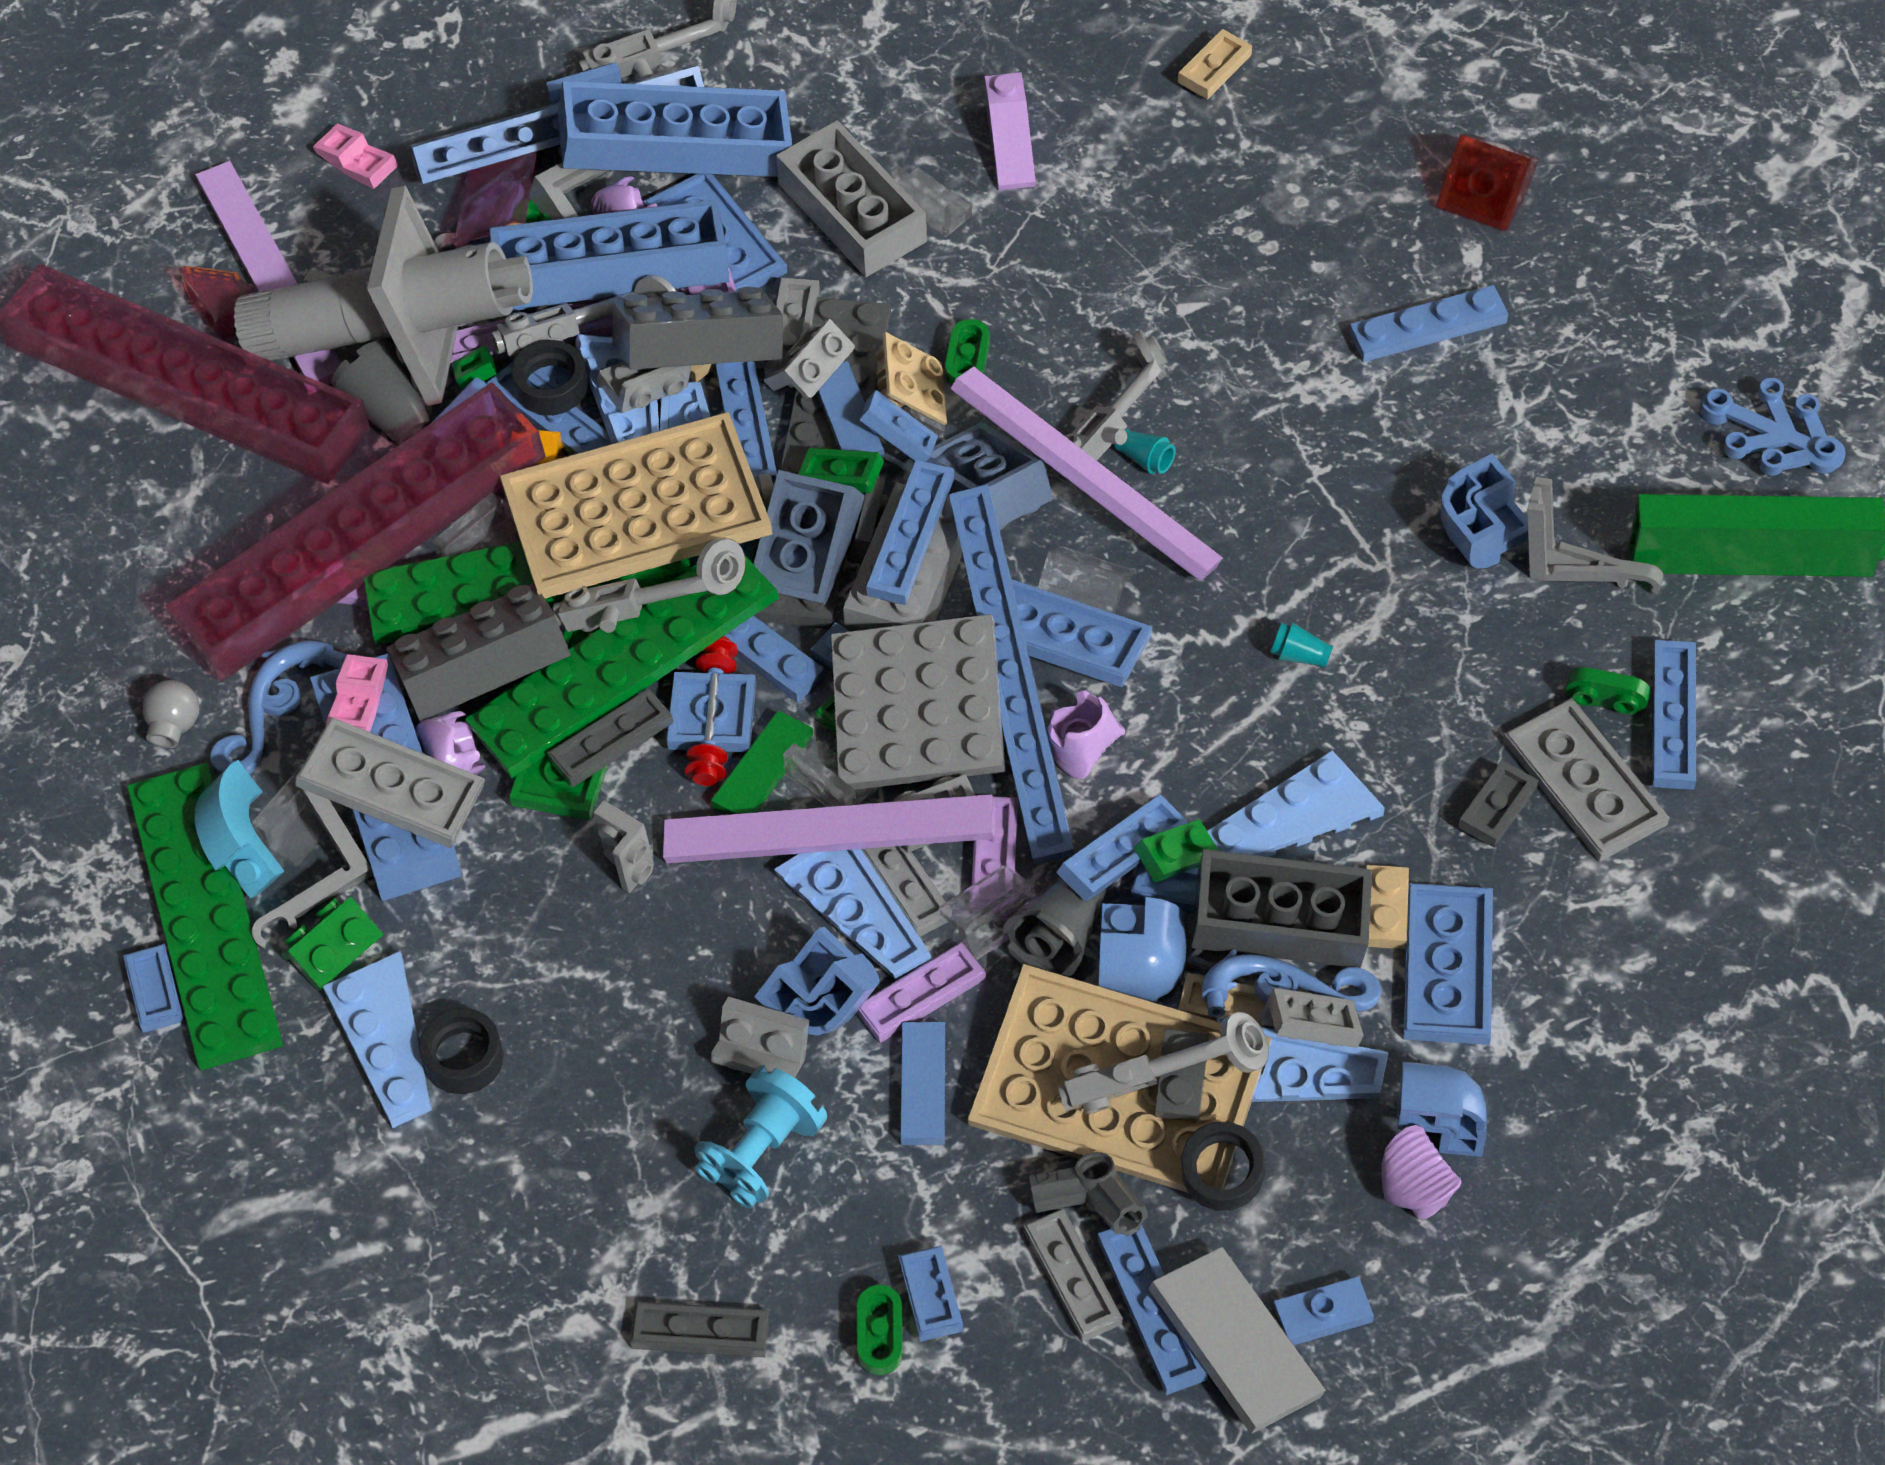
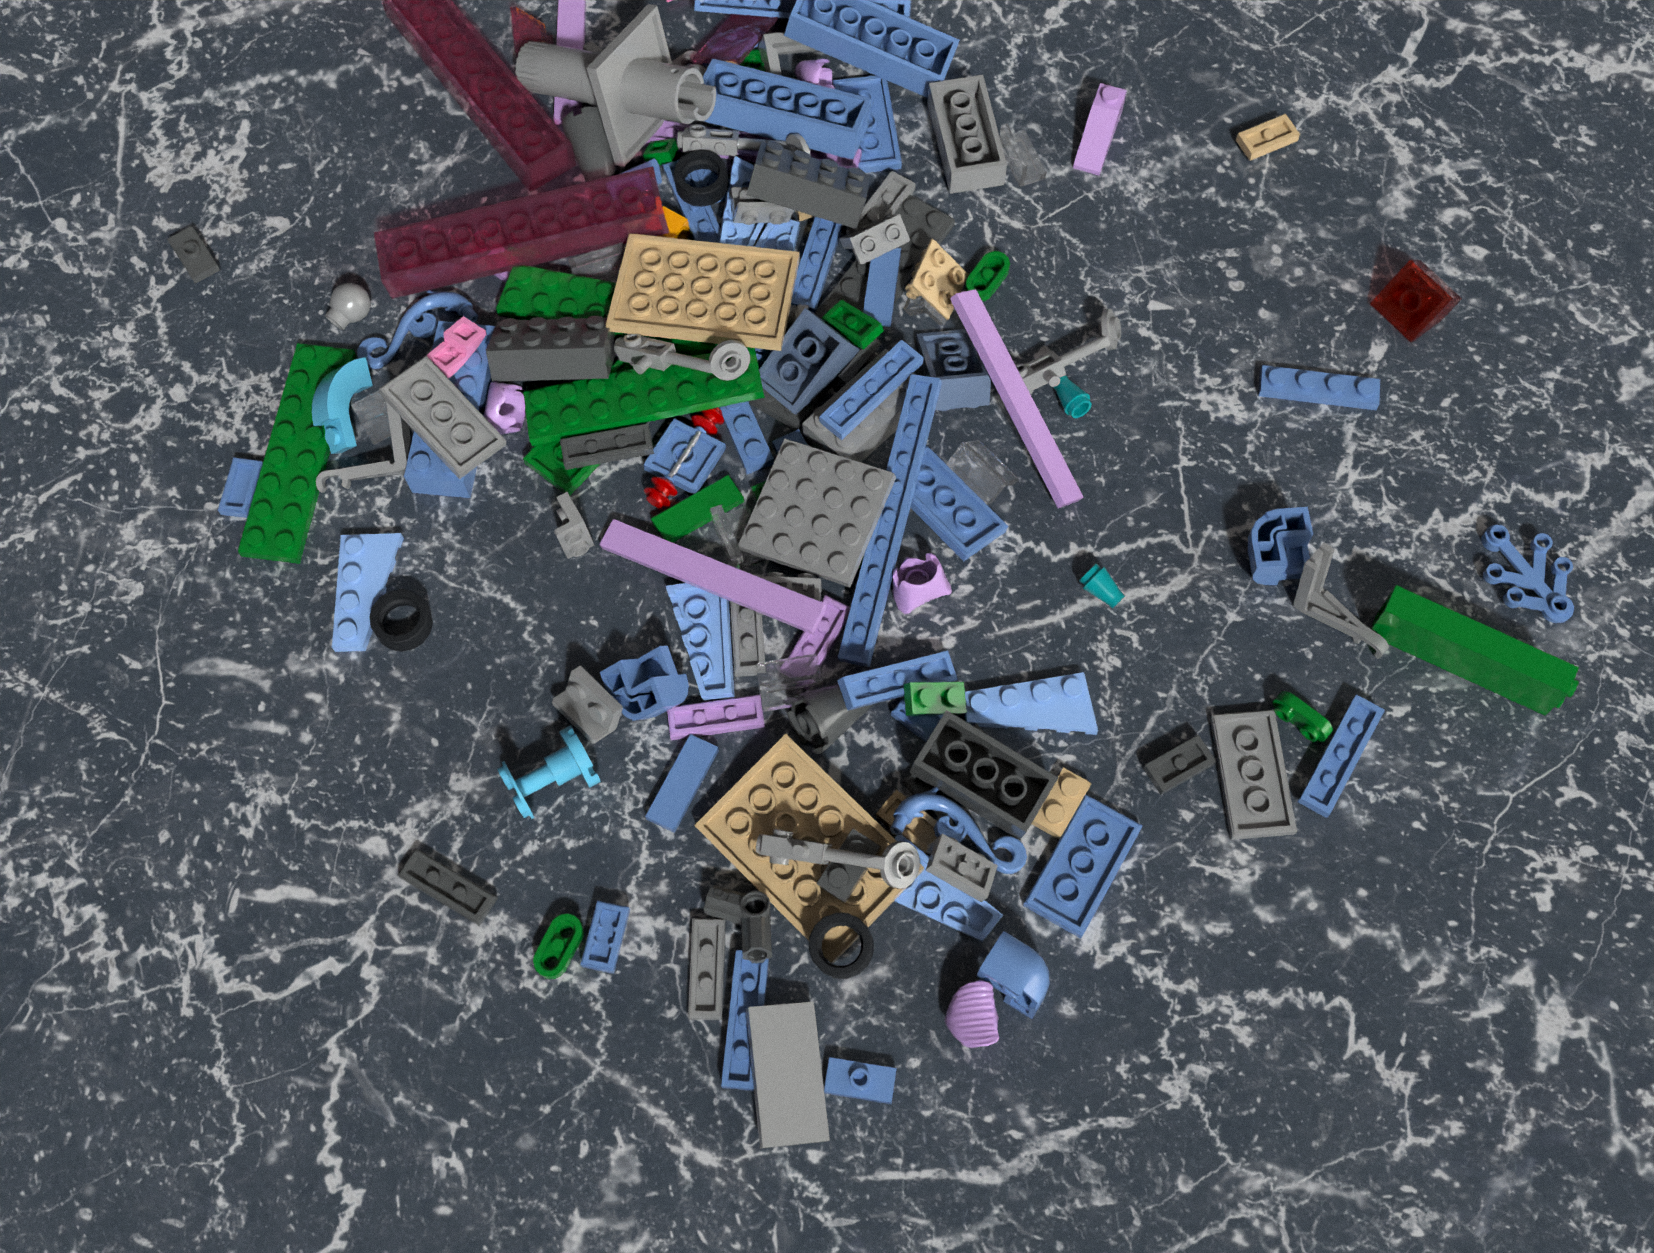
camera: 25 degrees right, 10 degrees up
(332, 942) = (362, 507): green bracket -> none
(898, 427) = (908, 310): medium blue plate -> none
(1142, 948) = (873, 759): medium blue brick -> none

